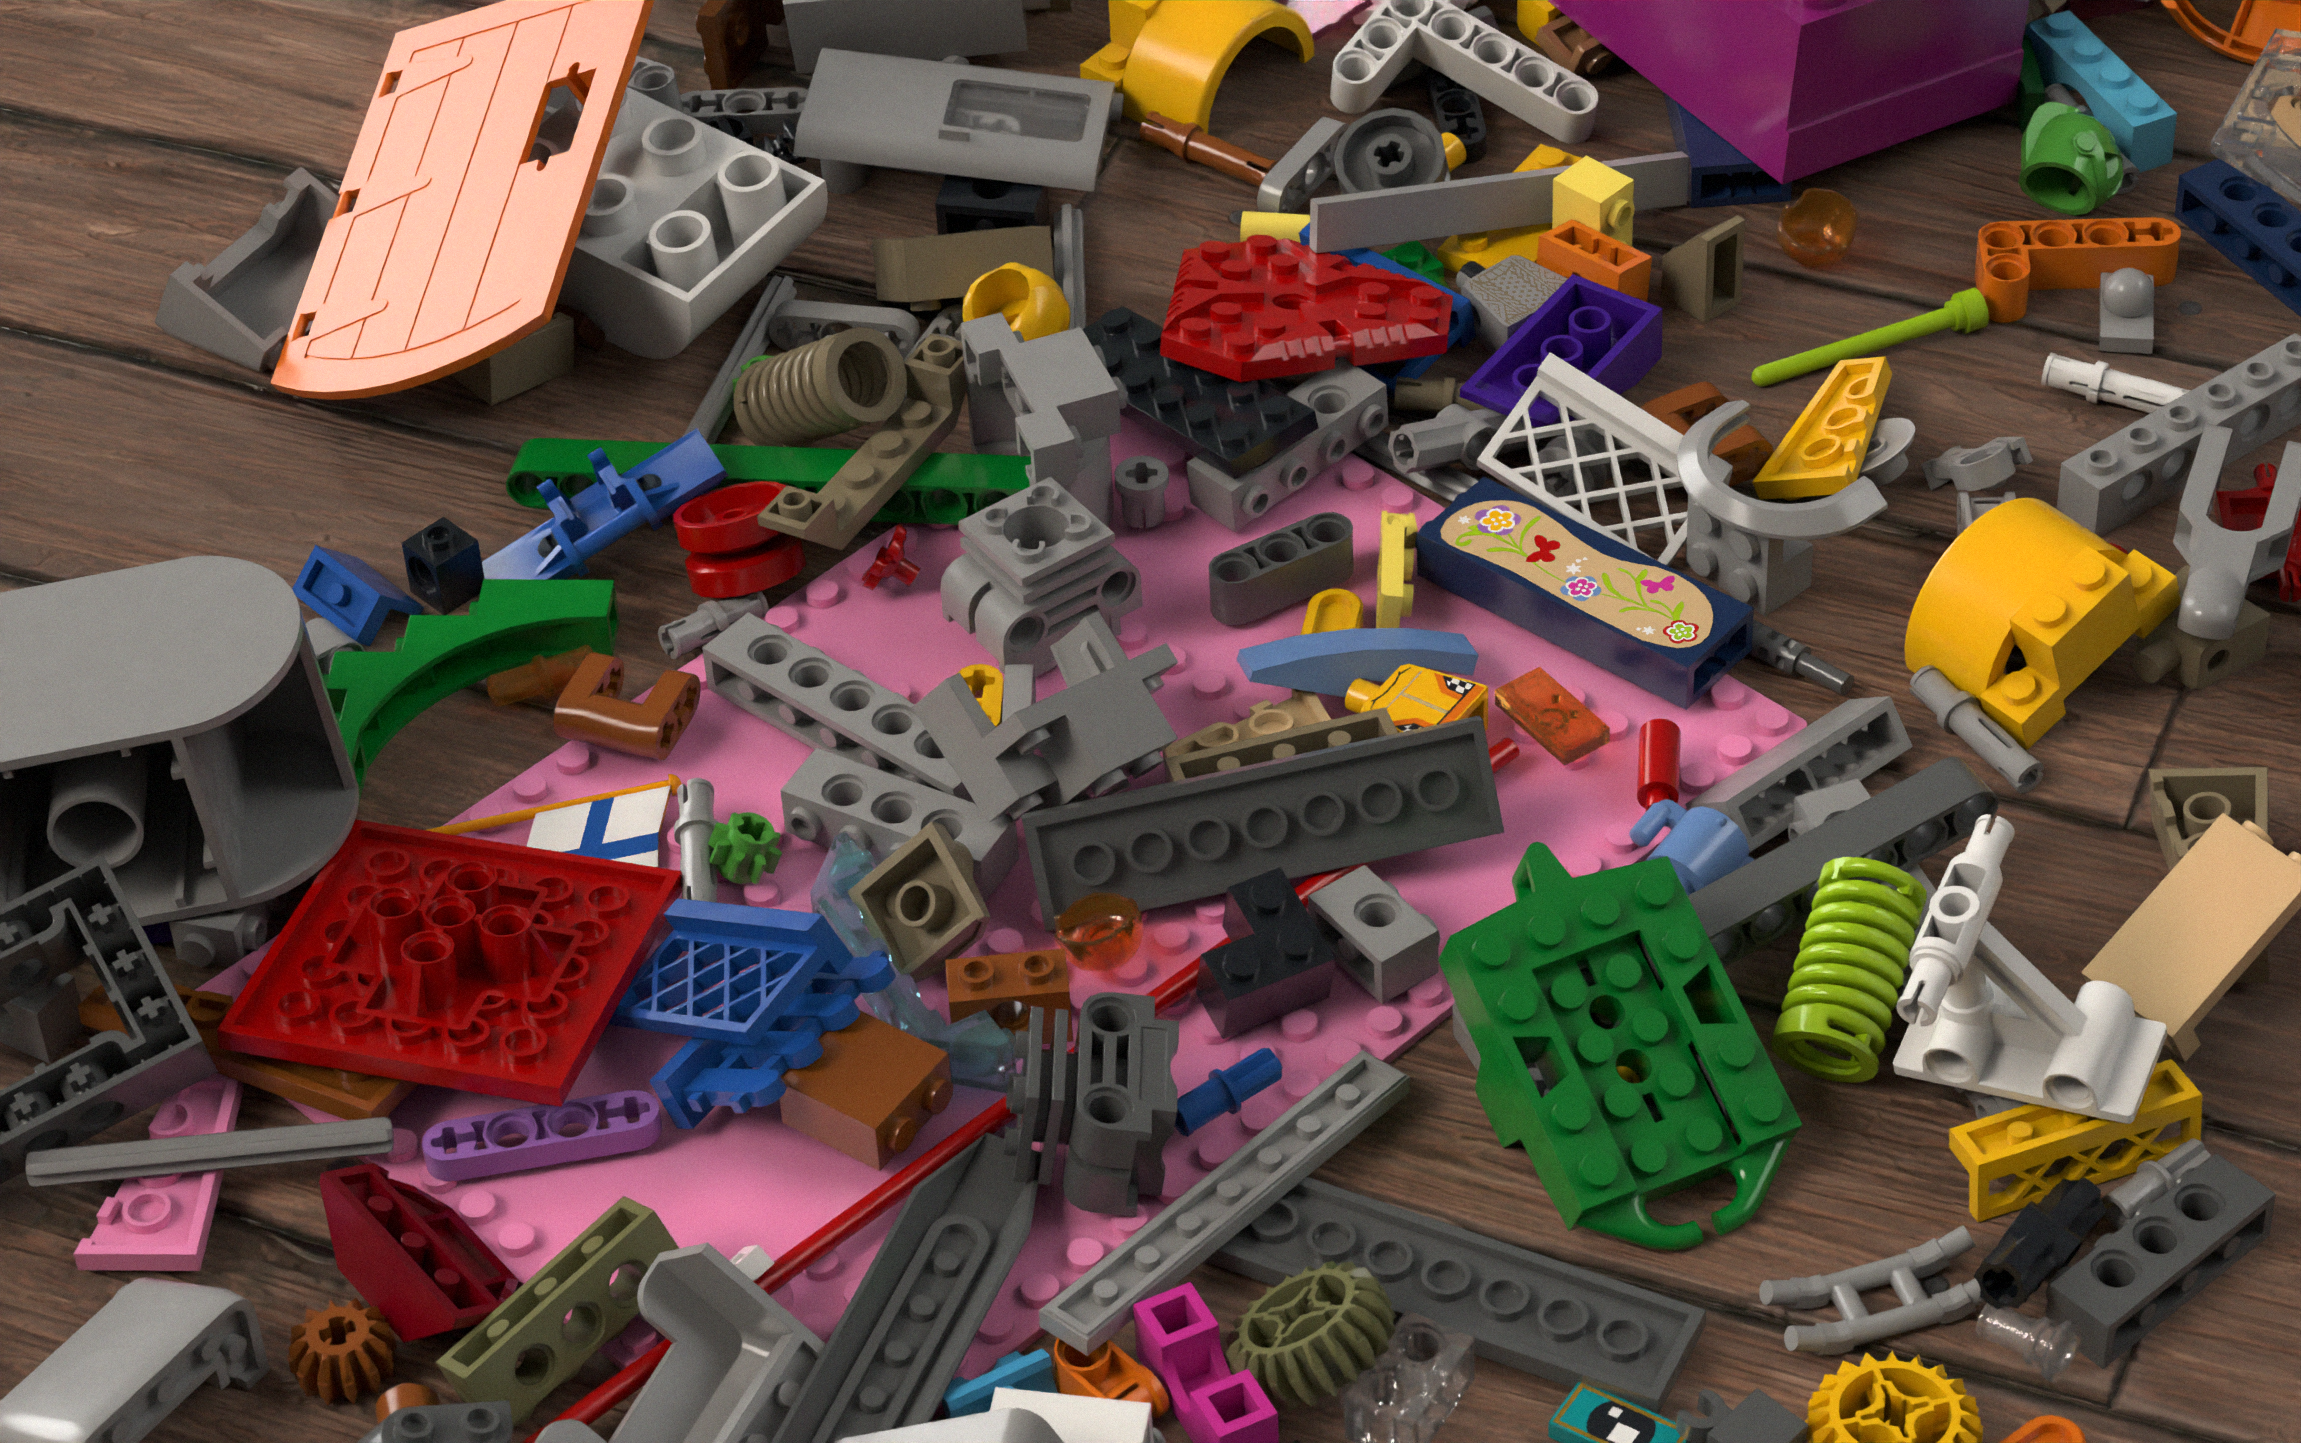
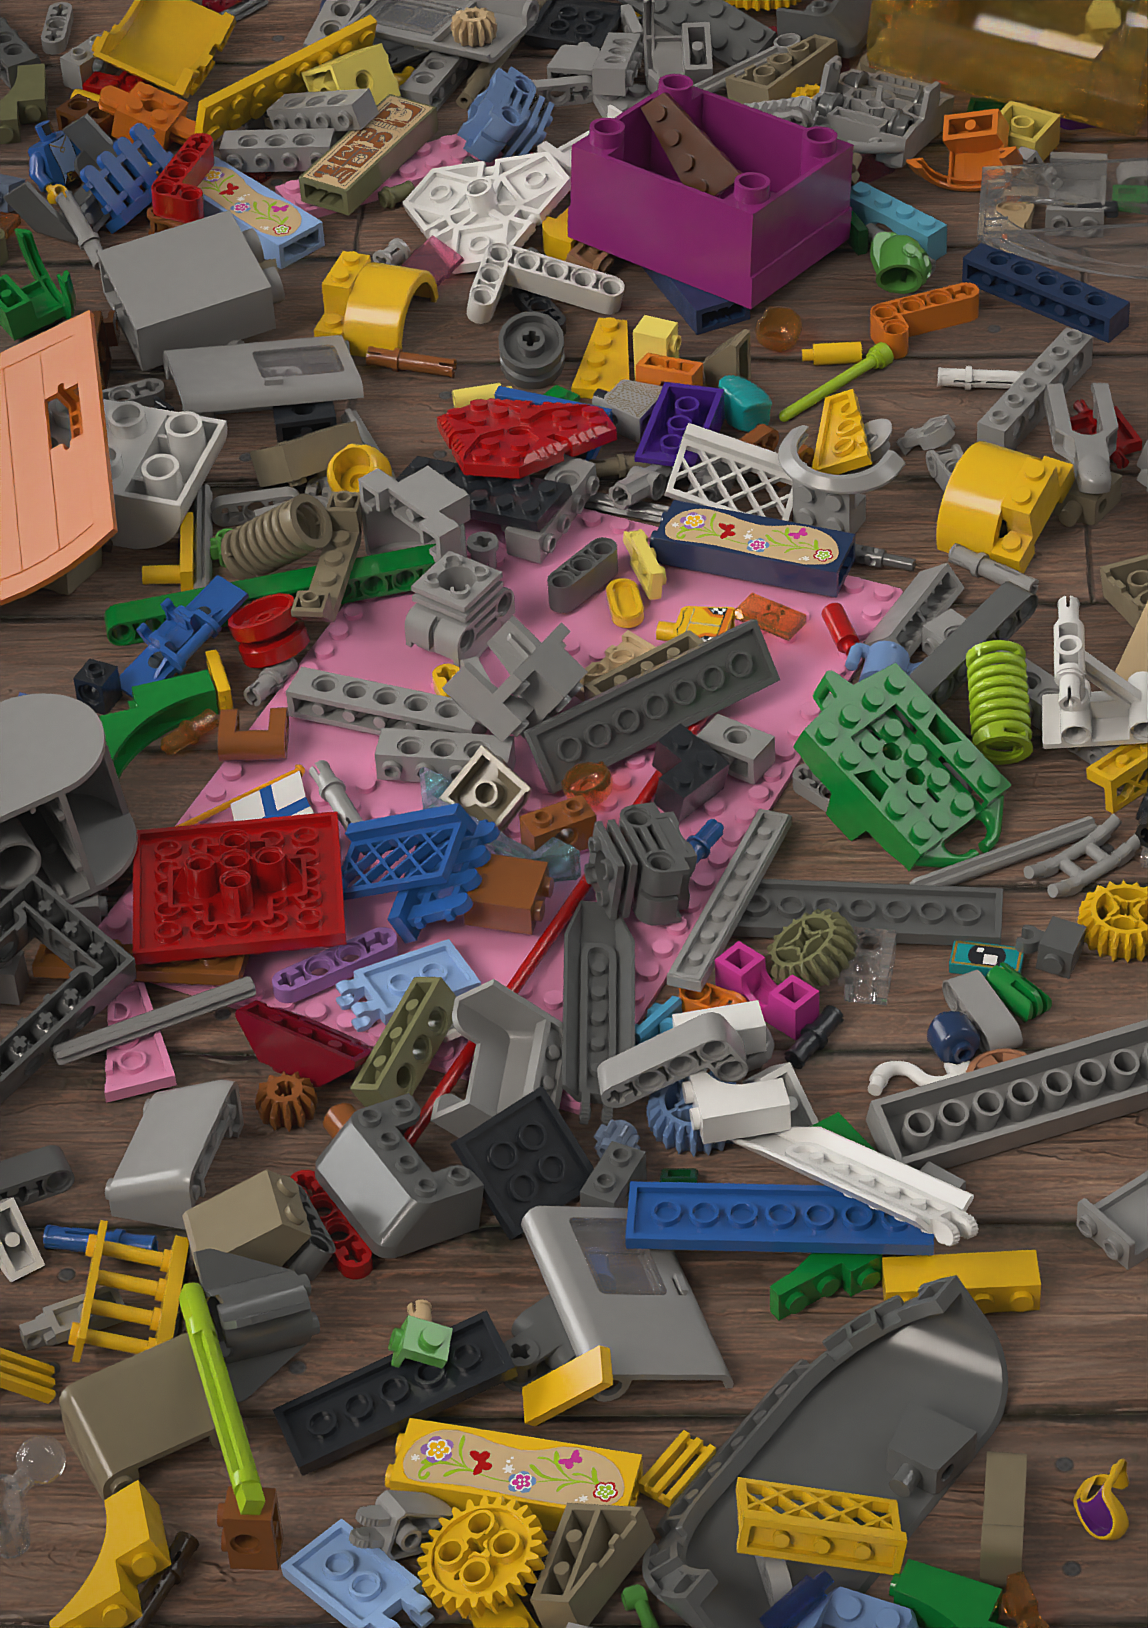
camera: 20 degrees left, 0 degrees up
(630, 605) = (219, 680): none -> yellow tile
(677, 409) = (176, 574): none -> yellow piece
(690, 1187) = (388, 980): none -> light blue tile
(745, 848) = (367, 790): bright green gear -> none
(891, 562) = (359, 623): red plant -> none
(1301, 168) = (472, 358): light grey beam -> none
(1336, 658) = (645, 612): medium blue slope -> none
(1476, 204) = (585, 357): light grey tile -> none
(1698, 338) = (744, 403): none -> teal hair
(1750, 1248) = (1008, 854): none -> light grey axle
(1893, 289) = (834, 353): none -> yellow cylinder
(2126, 312) = (964, 337): light grey tile -> none

